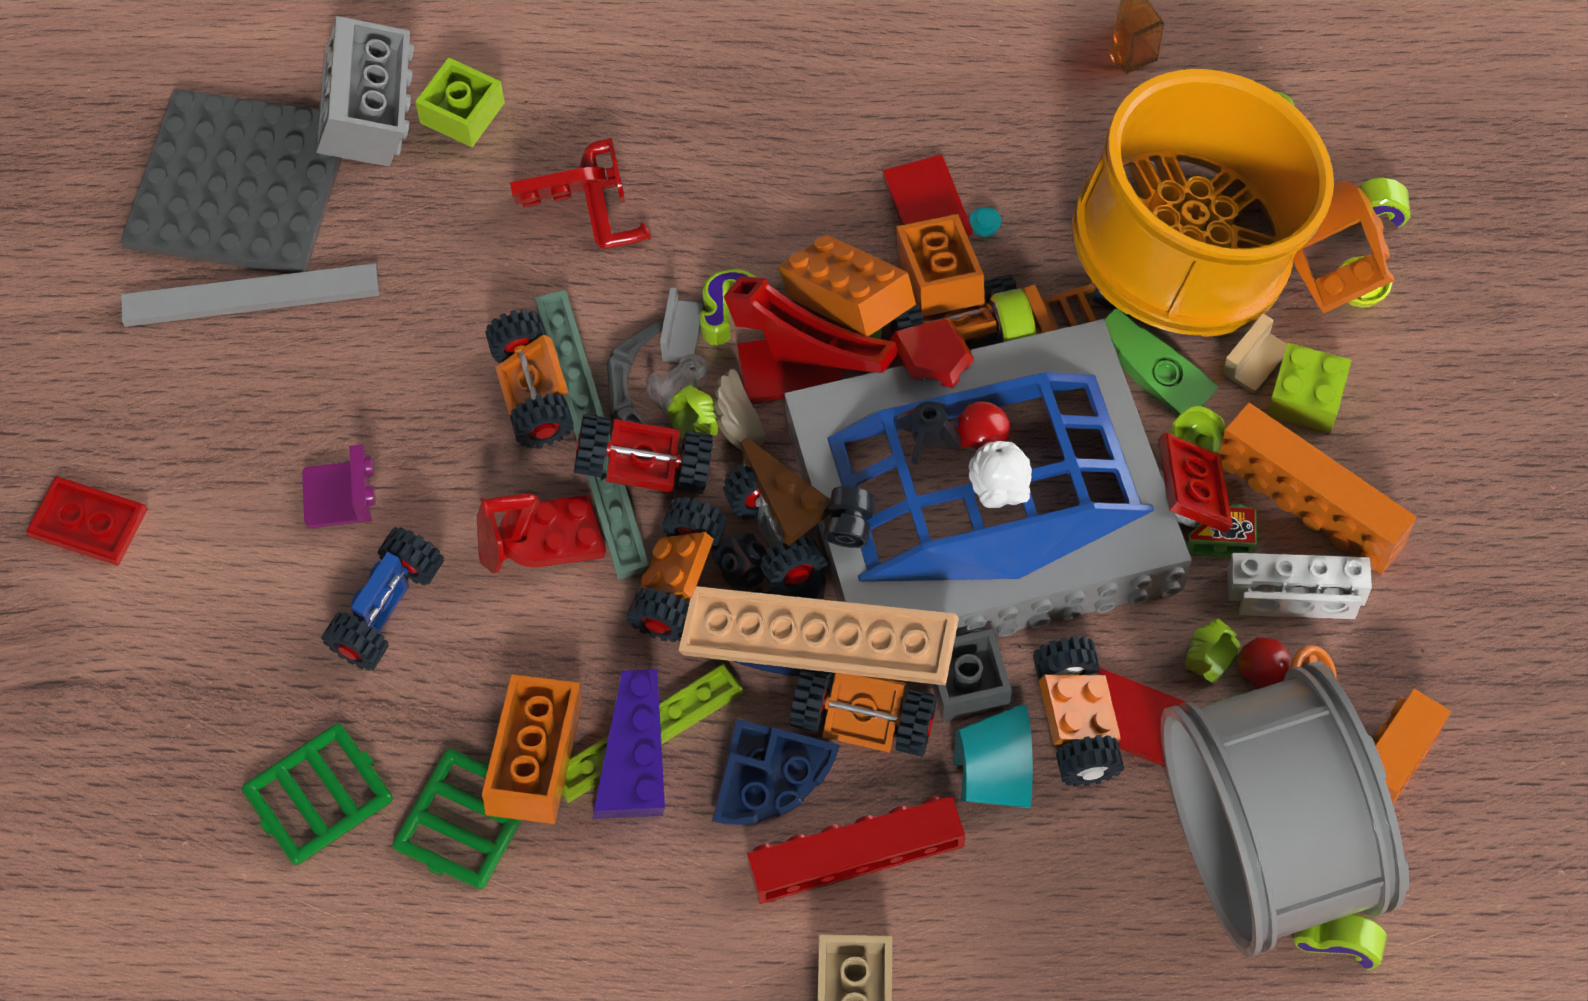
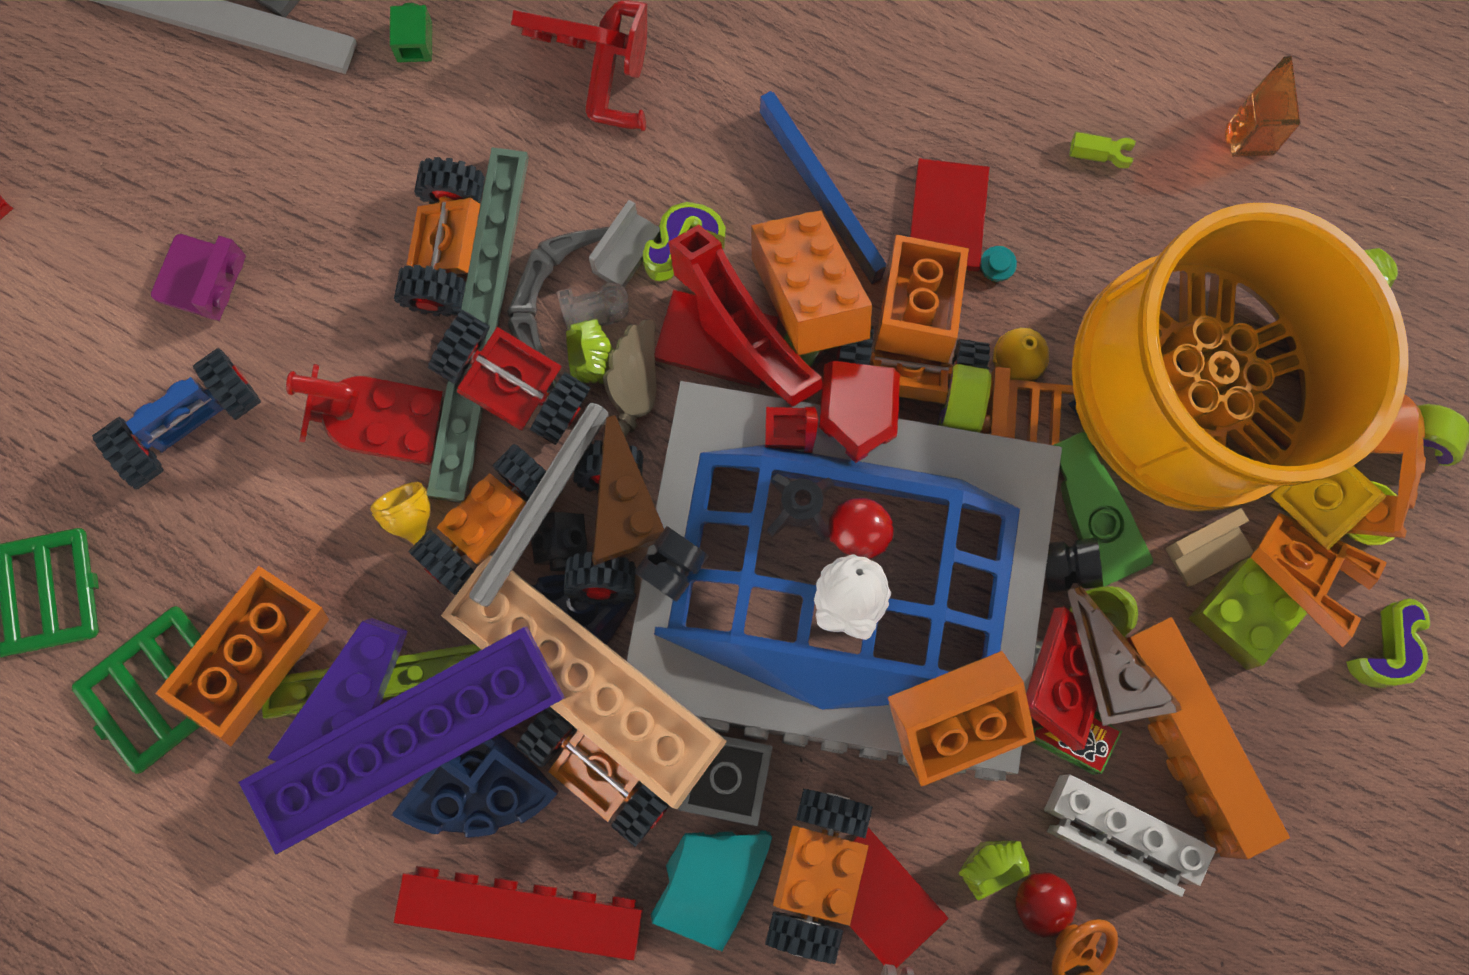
camera: 20 degrees right, 15 degrees up
(422, 241) = (411, 33): none -> green brick
(605, 593) = (403, 511): none -> yellow helmet
(699, 741) = (401, 740): none -> dark purple plate
(718, 530) = (538, 505): none -> light grey axle
(808, 215) = (822, 187): none -> blue tile
(890, 388) = (791, 428): none -> red tile
(1022, 107) = (1101, 149): none -> lime bar
(1039, 271) = (1023, 352): none -> yellow helmet
(1127, 526) = (962, 718): none -> orange brick
(1158, 407) = (1074, 565): none -> black wheel
(1233, 462) = (1119, 676): none -> reddish brown wing
(1323, 277) = (1330, 504): none -> yellow tile
(1337, 331) = (1308, 570): none -> orange wing
(1438, 365) = (1403, 649): none -> lime animal

